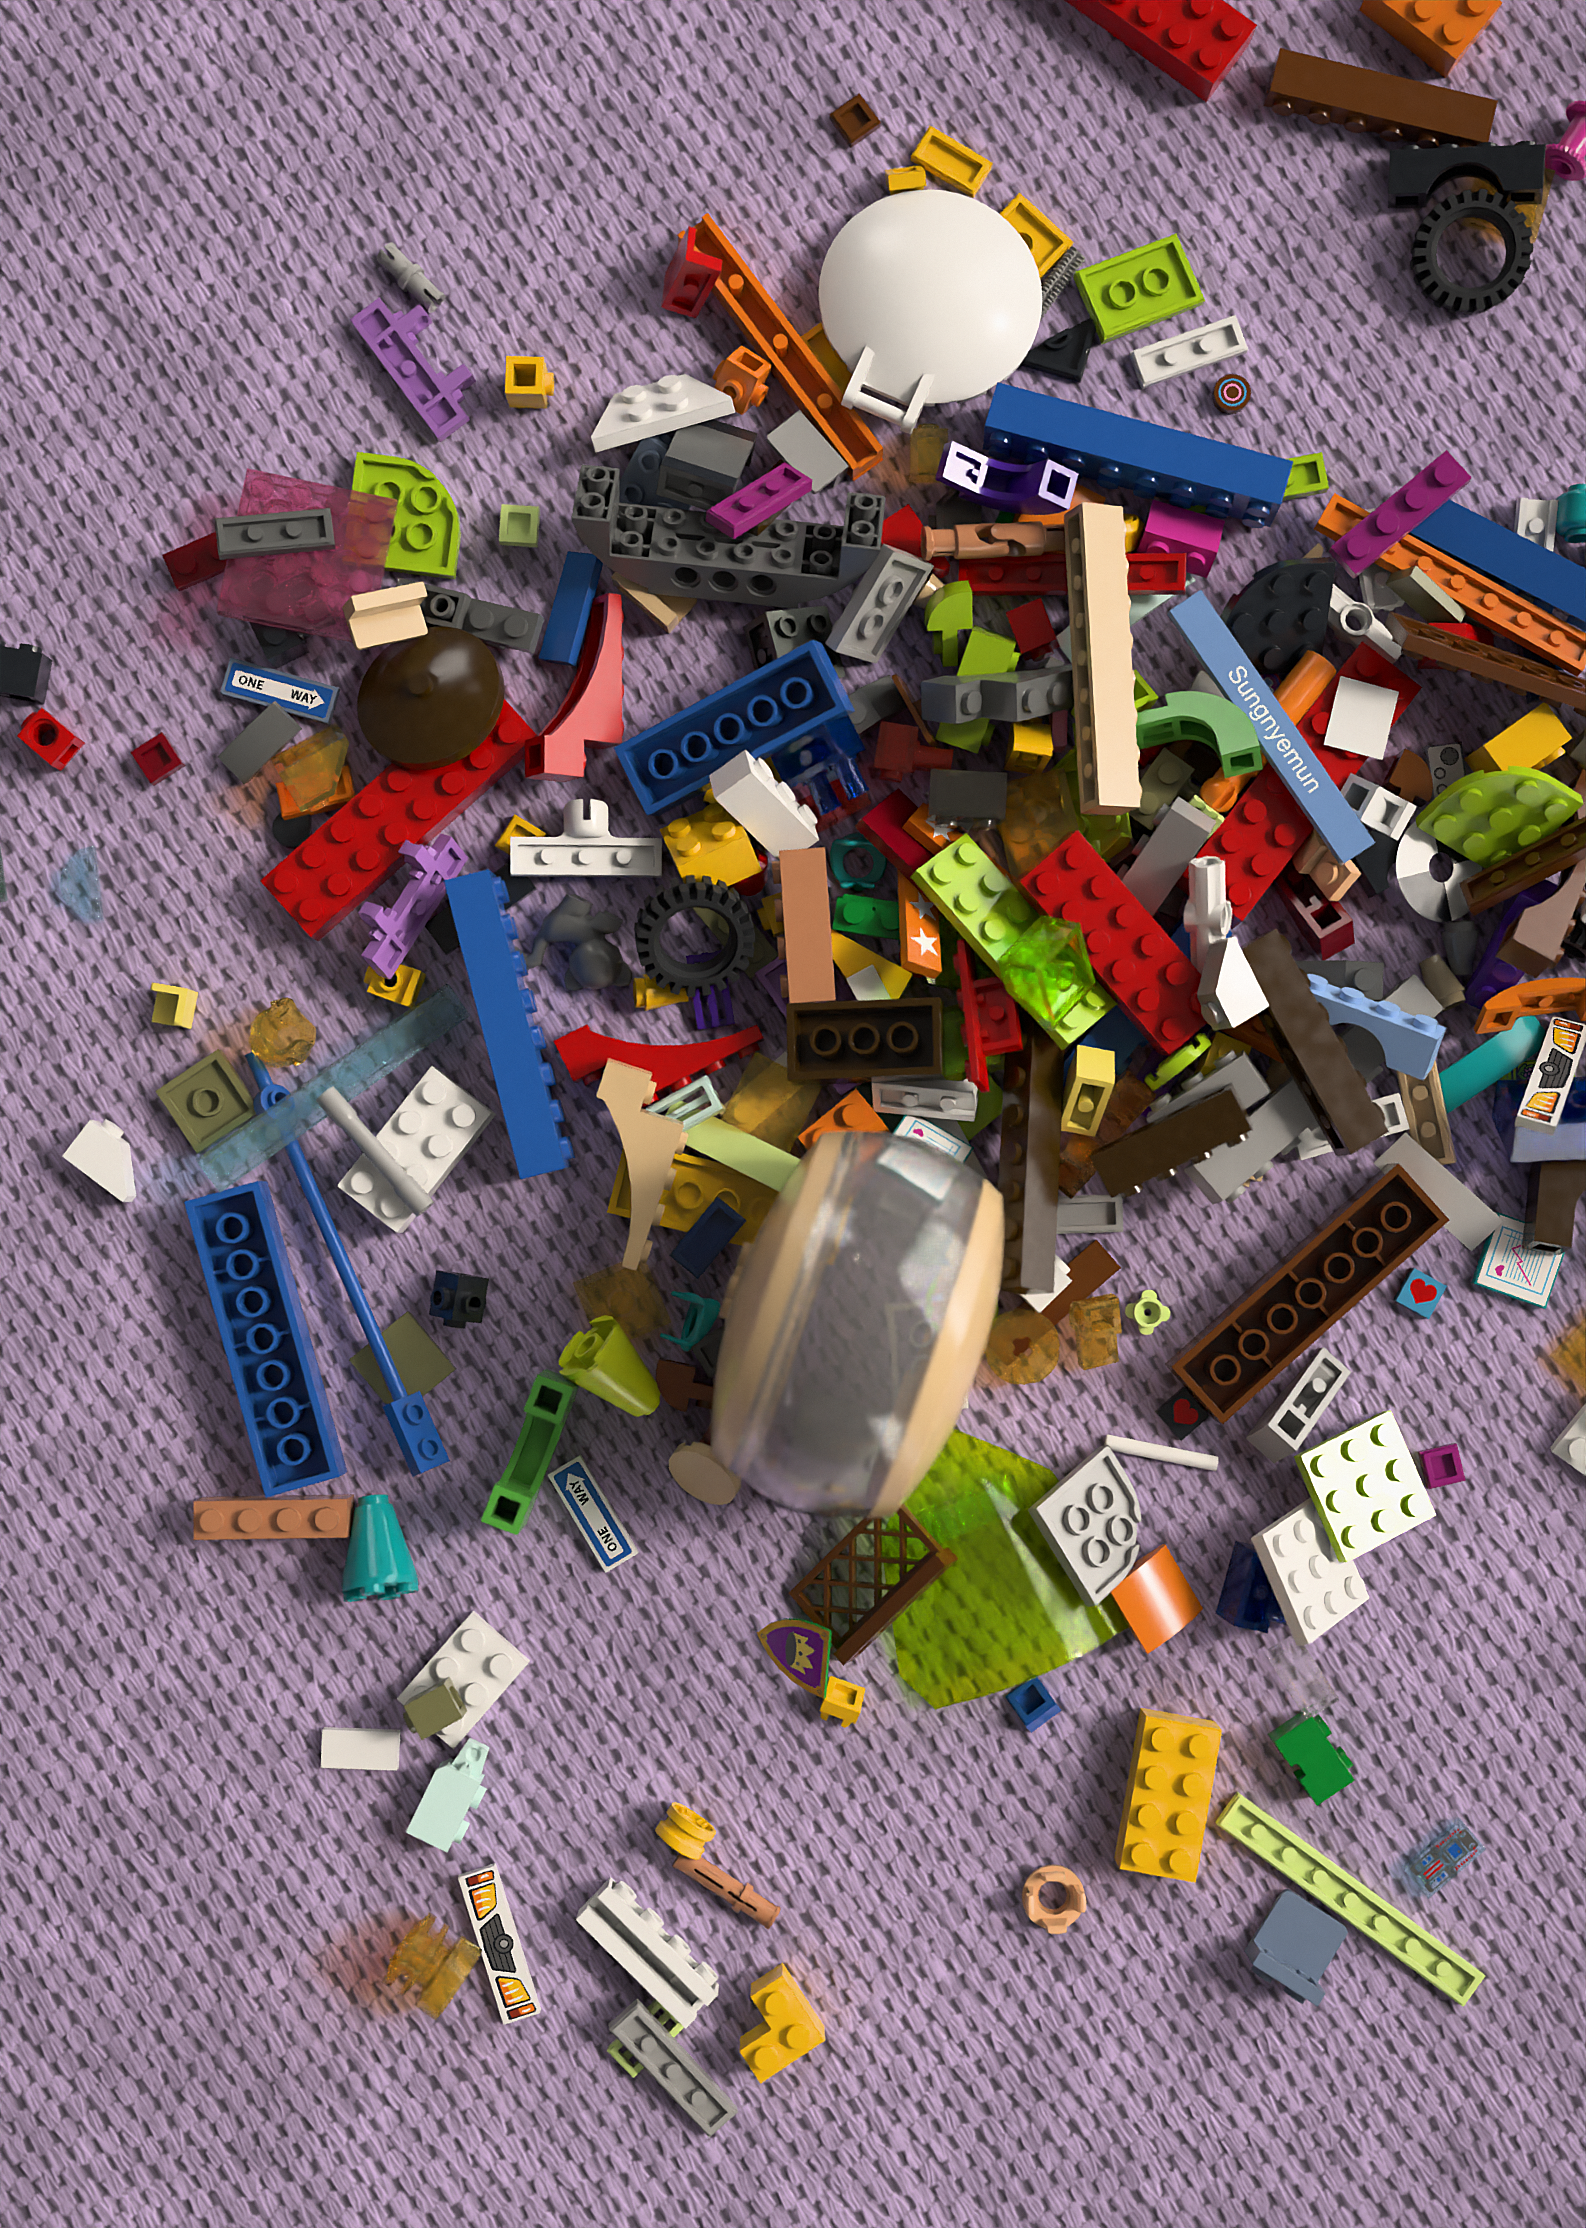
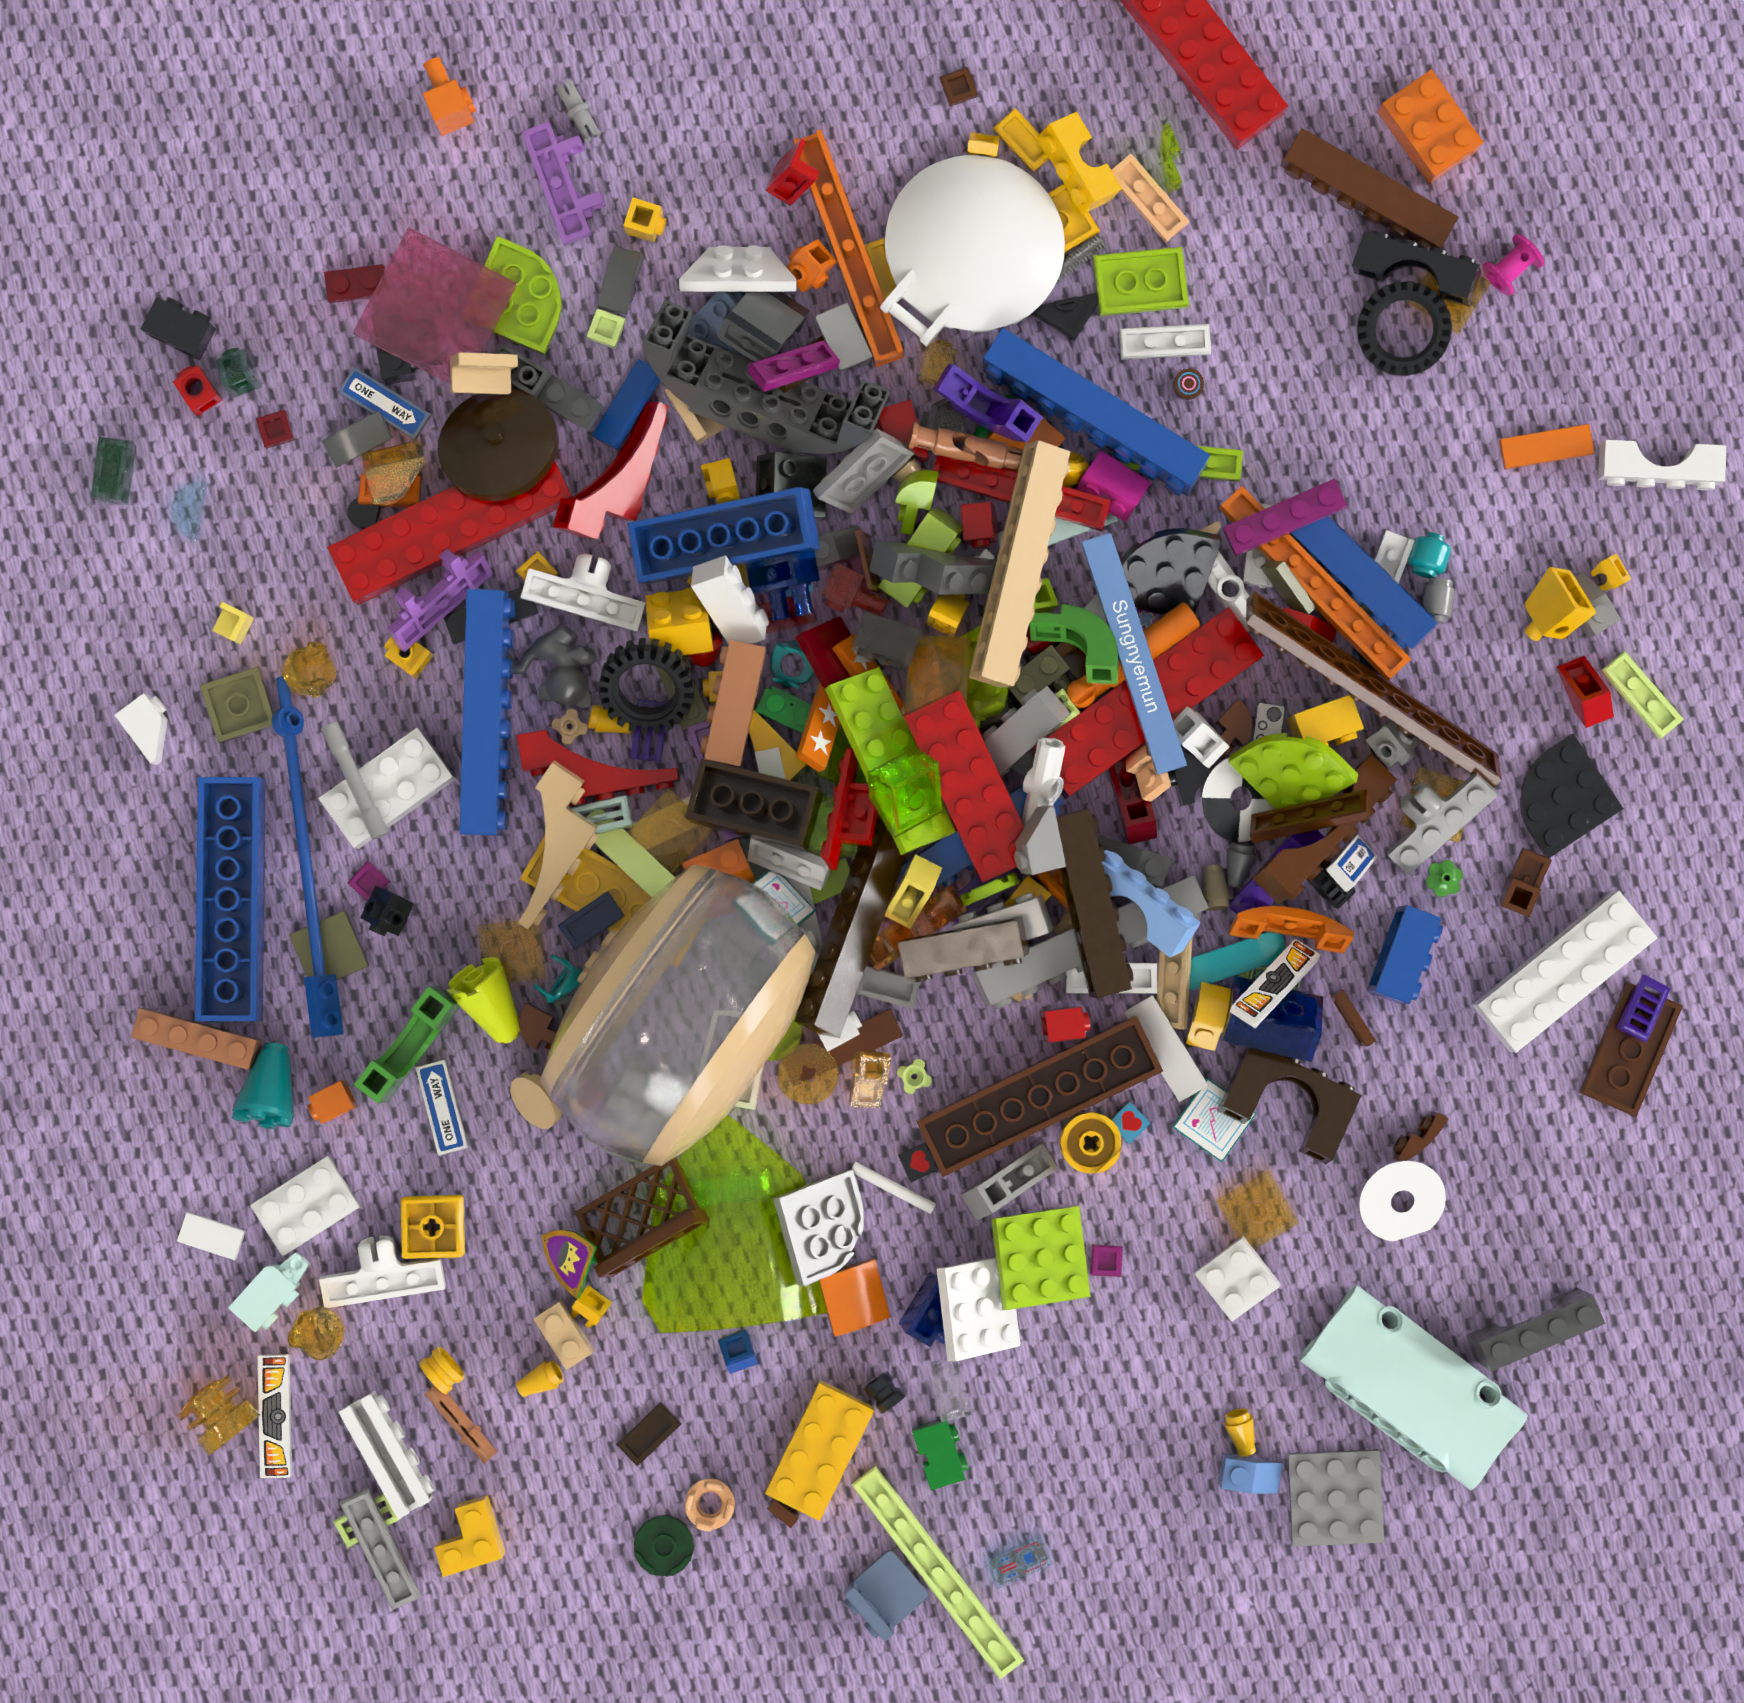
camera: 15 degrees right, 0 degrees up
(93, 703) = (237, 372): none -> slope
(250, 305) = (447, 102): none -> orange brick
(274, 533) = (414, 285): dark grey tile -> none
(350, 1077) = (351, 716): clear light blue plate -> none
(423, 1266) = (366, 879): none -> magenta tile
(434, 1709) = (276, 1220): olive brick -> none
(459, 1546) = (331, 1102): none -> orange brick
(519, 463) = (619, 280): none -> dark grey slope
(522, 1830) = (317, 1333): none -> clear yellow cap
(579, 1738) = (381, 1276): none -> white plate
(611, 1682) = (419, 1241): none -> yellow brick
(624, 1012) = (570, 717): none -> tan plate
(709, 666) = (720, 481): none -> yellow brick
(807, 1806) = (542, 1378): none -> yellow cone
(819, 1745) = (563, 1334): none -> tan brick
(955, 1833) = (649, 1434): none -> dark brown tile
(1007, 1951) = (663, 1545): none -> dark green tile
(1041, 188) = (1086, 184): none -> yellow arch
(1058, 724) = (975, 608): bright pink tile -> none
(1119, 186) = (1149, 198): none -> light nougat plate
(1127, 123) = (1169, 150): none -> clear neon green slope
(1146, 1883) = (783, 1512): none -> reddish brown tile
(1224, 1702) = (884, 1392): none -> black wheel
(1315, 1197) = (1064, 1024): none -> red brick
(1361, 718) = (1208, 666): white sticker -> none
(1402, 1320) = (1072, 1142): none -> yellow brick
(1481, 1138) = (1208, 1016): none -> yellow brick

